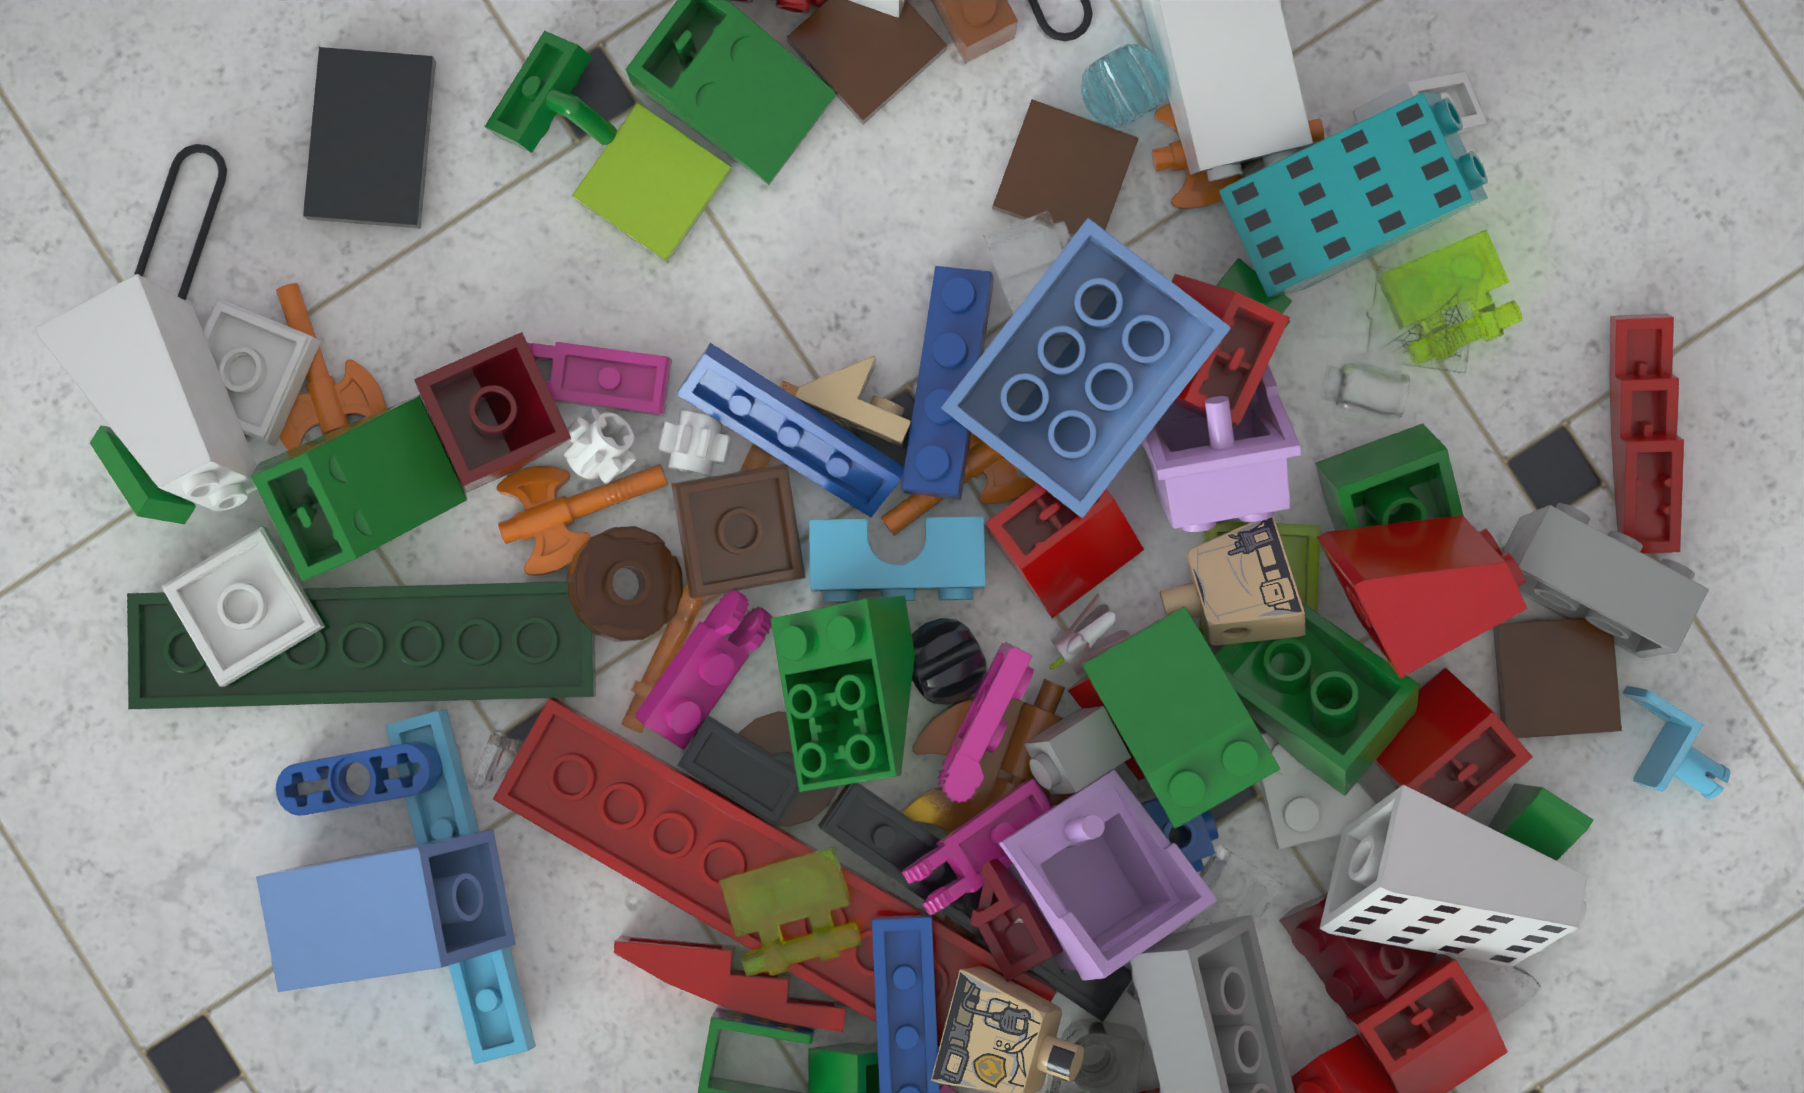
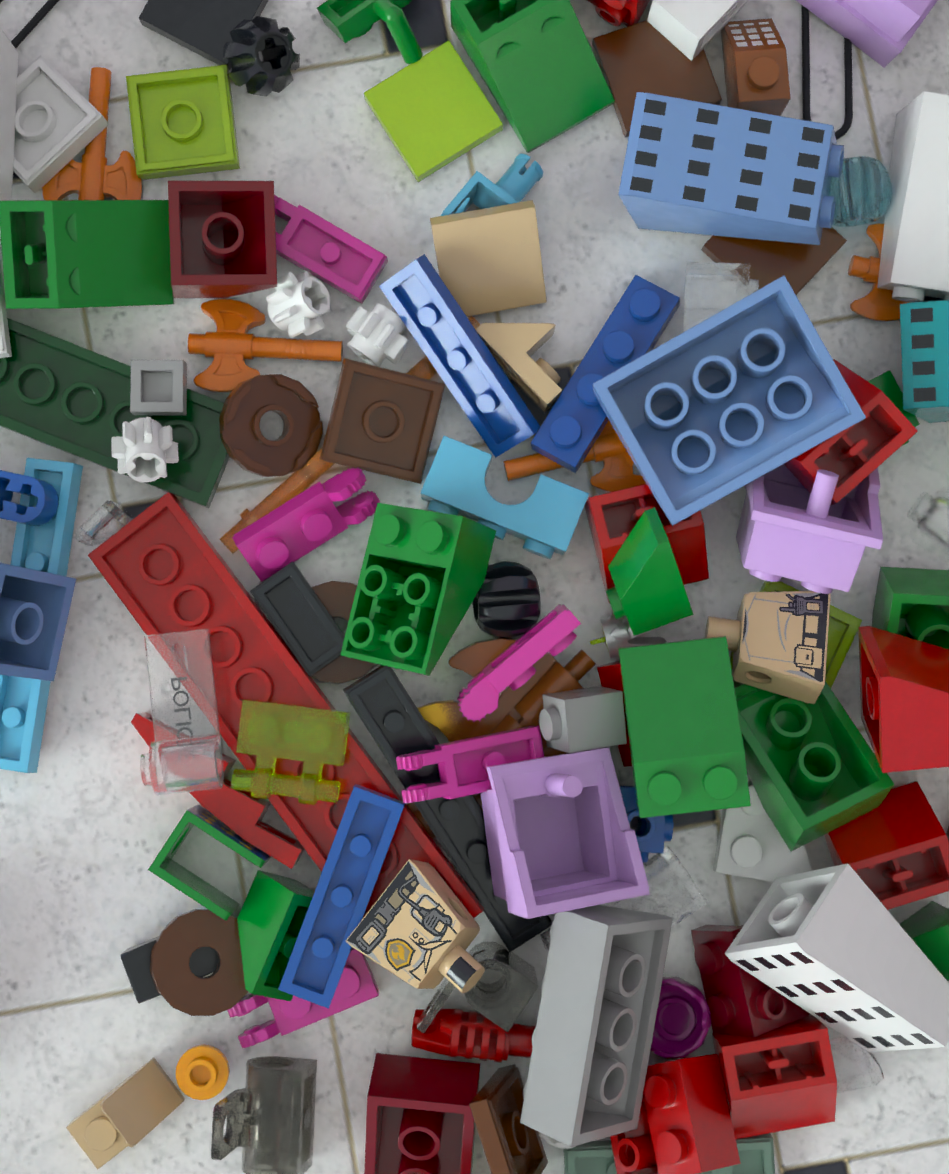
camera: 20 degrees right, 0 degrees up
(395, 304) = (182, 122): none -> lime tile
(468, 199) = (277, 52): none -> black piece
(493, 595) = (158, 387): none -> light grey plate
(508, 666) = (144, 449): none -> white gear
(665, 920) = (183, 714): none -> clear door
(761, 247) = (508, 190): none -> medium azure bracket
(778, 315) = (490, 257): none -> tan tile
(987, 124) = (728, 171): none -> medium blue slope
(1012, 923) = (469, 838): dark red slope -> none
(1080, 580) = (647, 578): none -> green slope
(1305, 1015) = (680, 1019): none -> magenta hair

